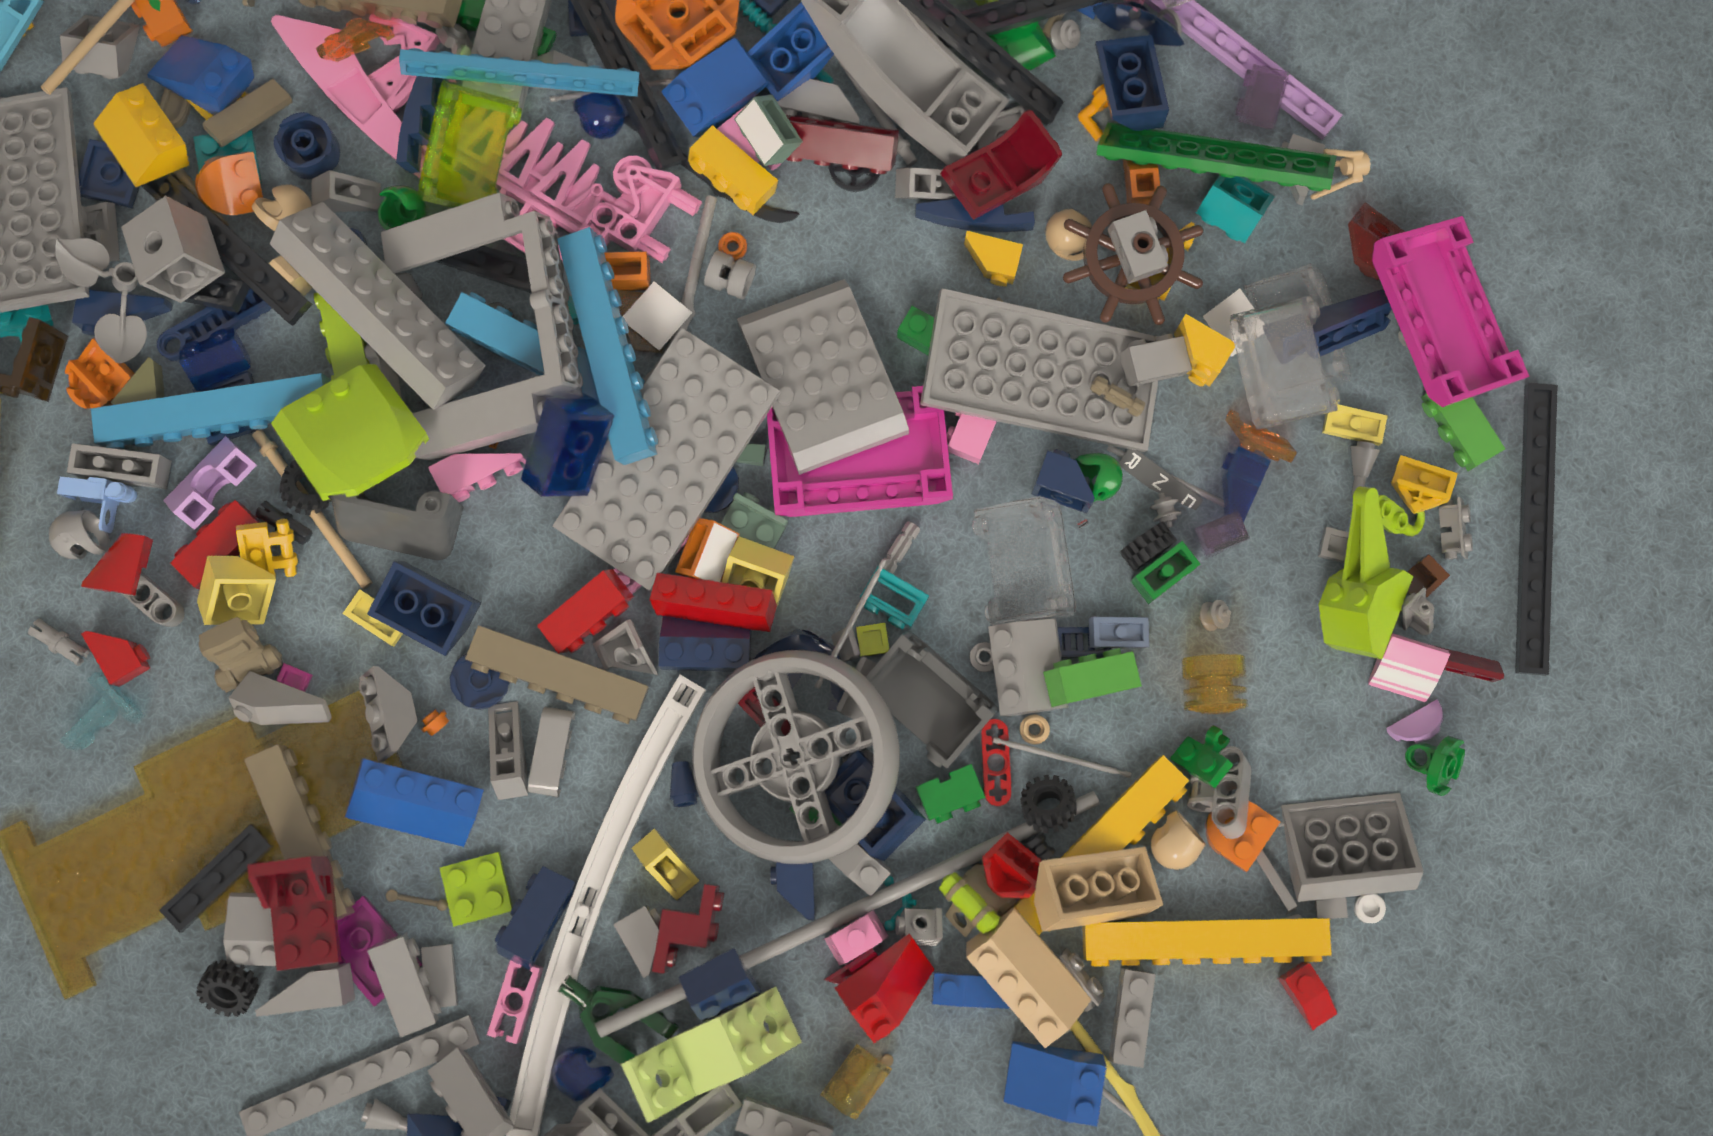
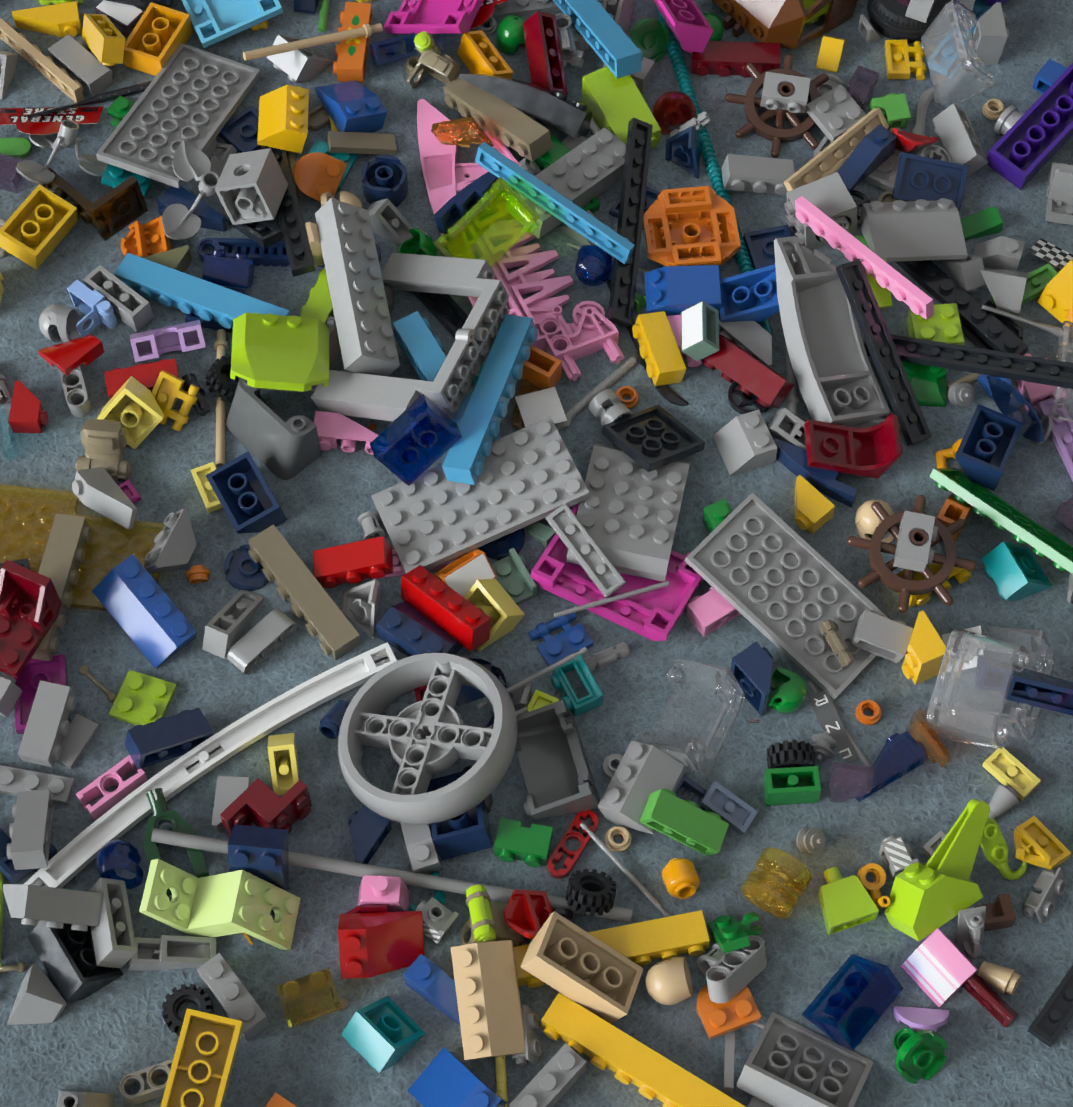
camera: 35 degrees right, 20 degrees down
(573, 557) = (371, 525): none -> light grey bush
(674, 122) = (640, 300): none -> bright green hand
(795, 280) = (653, 438): none -> black plate
(815, 455) = (585, 550): none -> light grey tile
(851, 560) = (563, 644): none -> blue plate
(871, 488) = (611, 599): none -> light grey piece
(887, 226) = (745, 443): none -> light grey slope
(947, 1066) = (382, 1033): none -> teal slope
(1119, 732) = (680, 878): none -> light orange head
(1191, 439) = (868, 705): none -> orange plate
(1283, 657) = (845, 902): none -> lime torso
(1299, 621) = (874, 887): none -> light orange plate
(1303, 579) = (896, 855): none -> light grey brick
(1348, 748) = (853, 1000): none -> clear blue slope
(1464, 638) = (1000, 977): none -> tan cone

